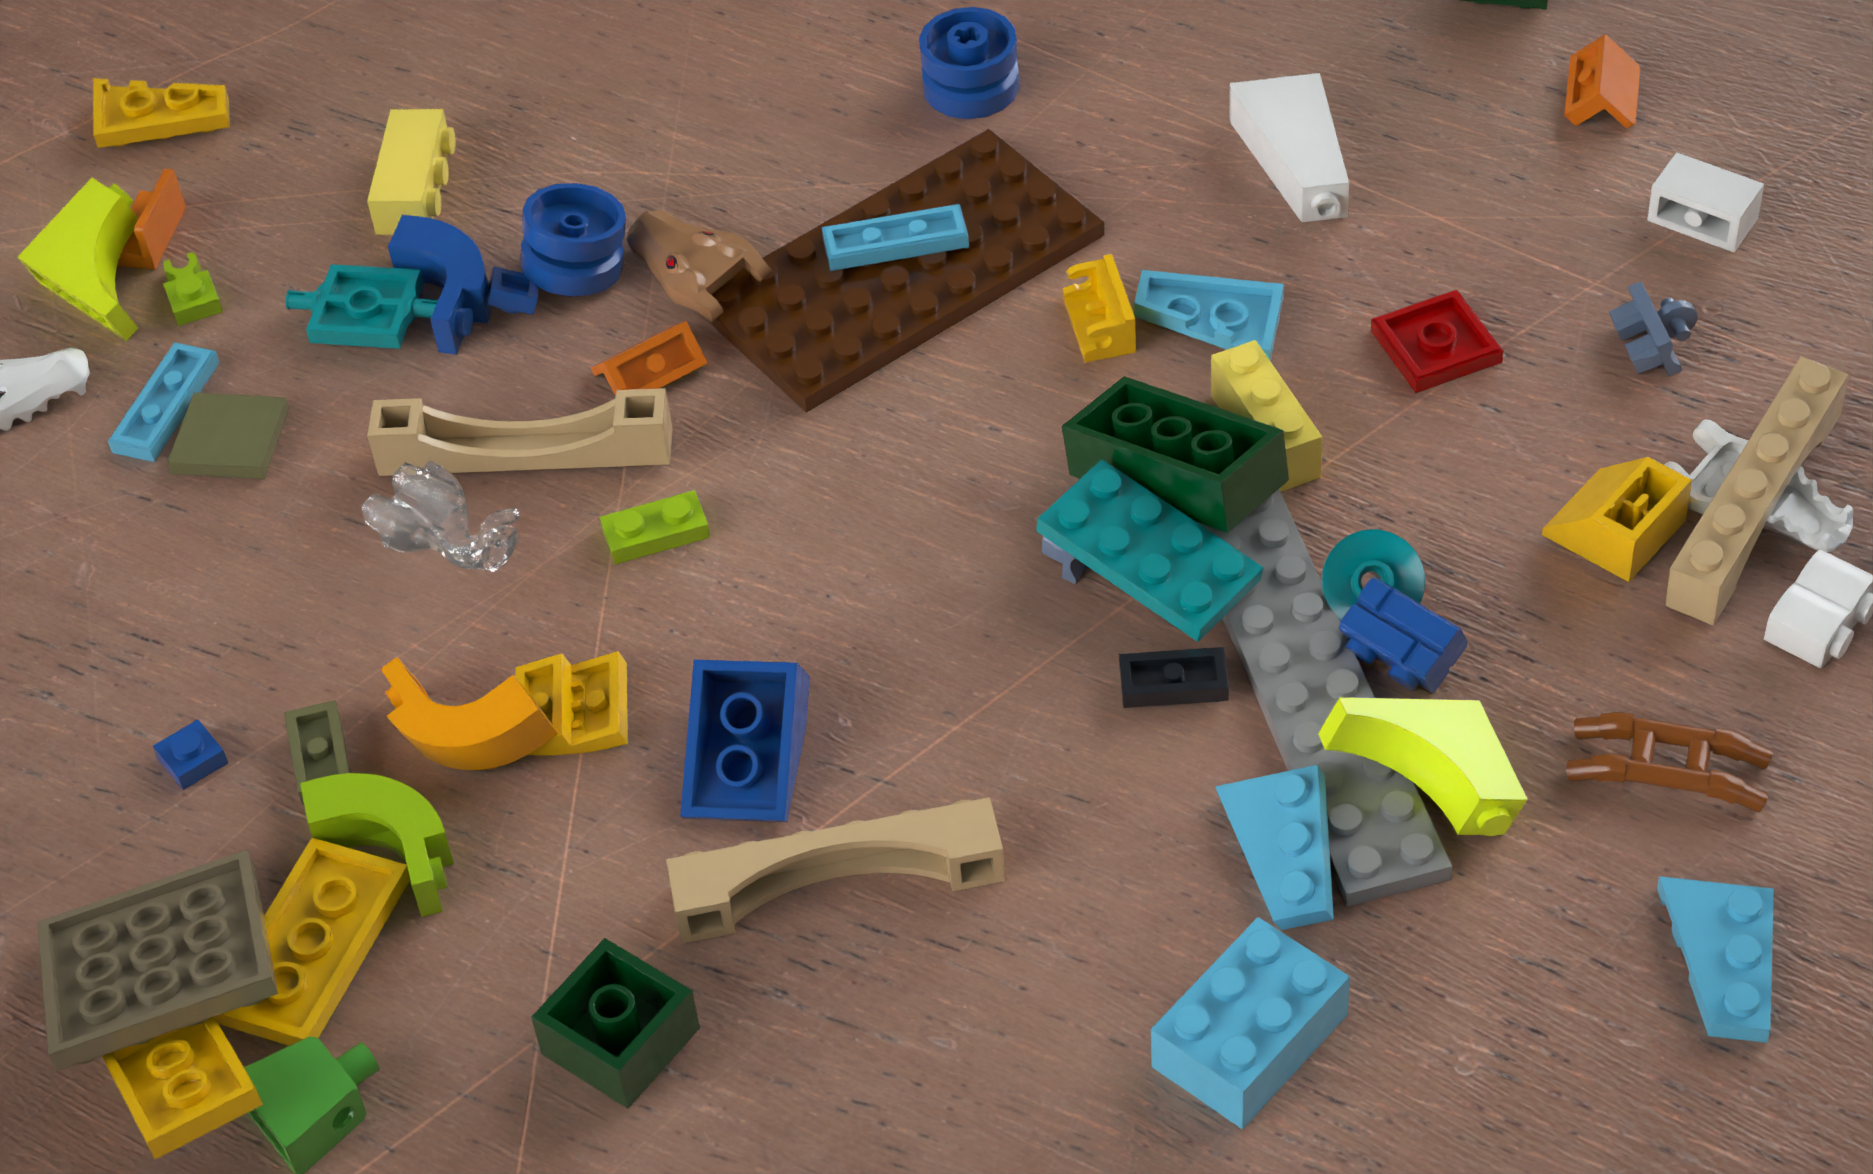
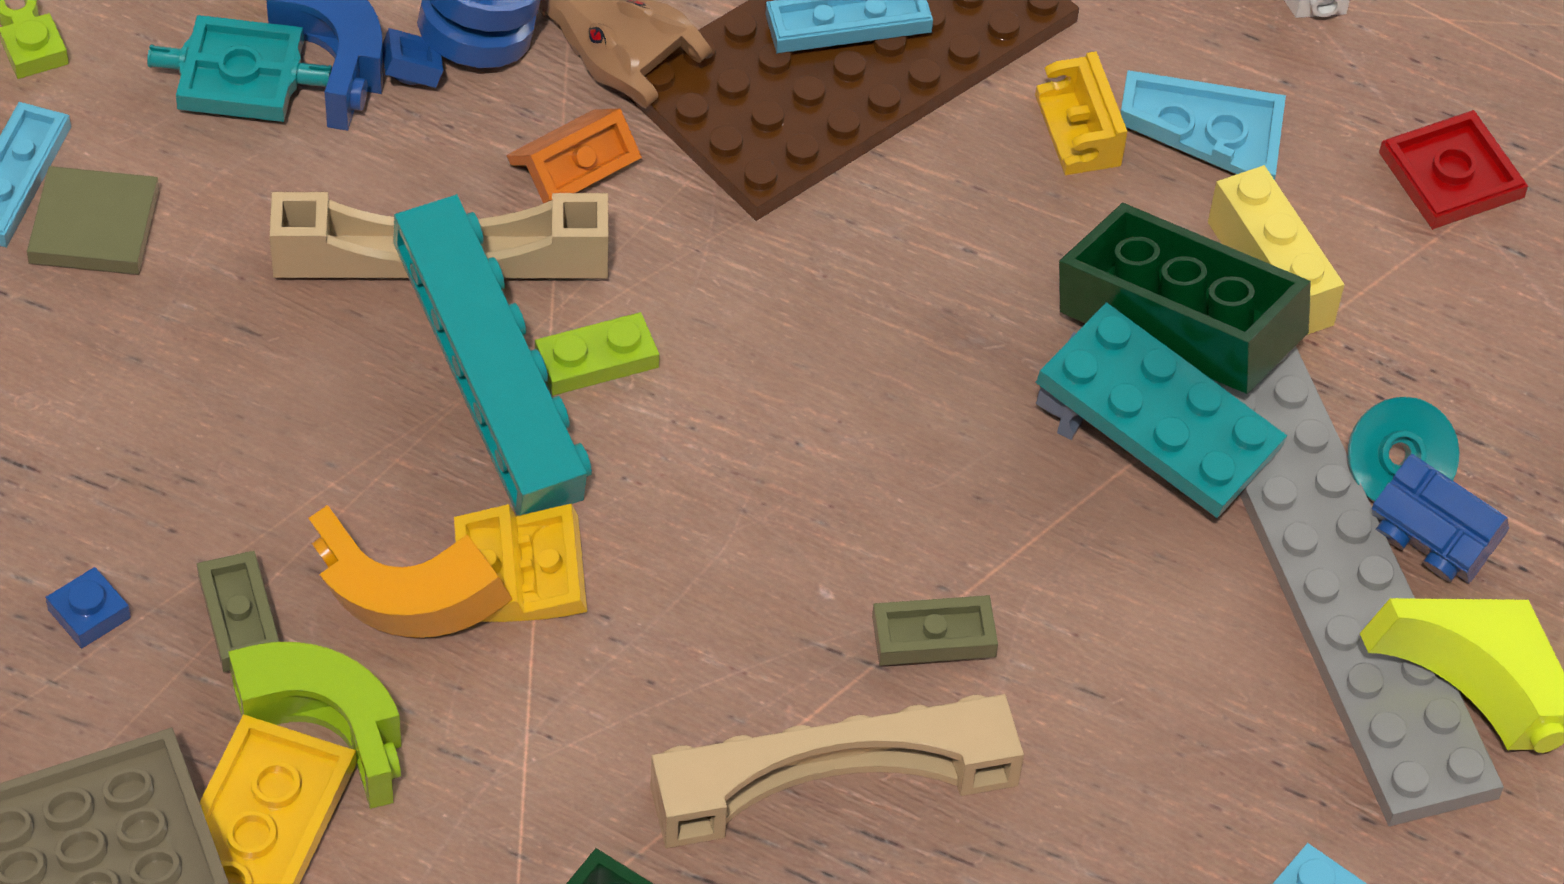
camera: 10 degrees left, 5 degrees up
(434, 515) = (346, 332): clear hips -> none
(553, 529) = (490, 356): none -> teal brick
(744, 739) = (722, 616): blue slope -> none
(935, 747) = (934, 630): none -> olive plate
(1173, 677) = (1190, 557): black plate -> none
(1285, 842) = (1324, 751): medium azure wing -> none

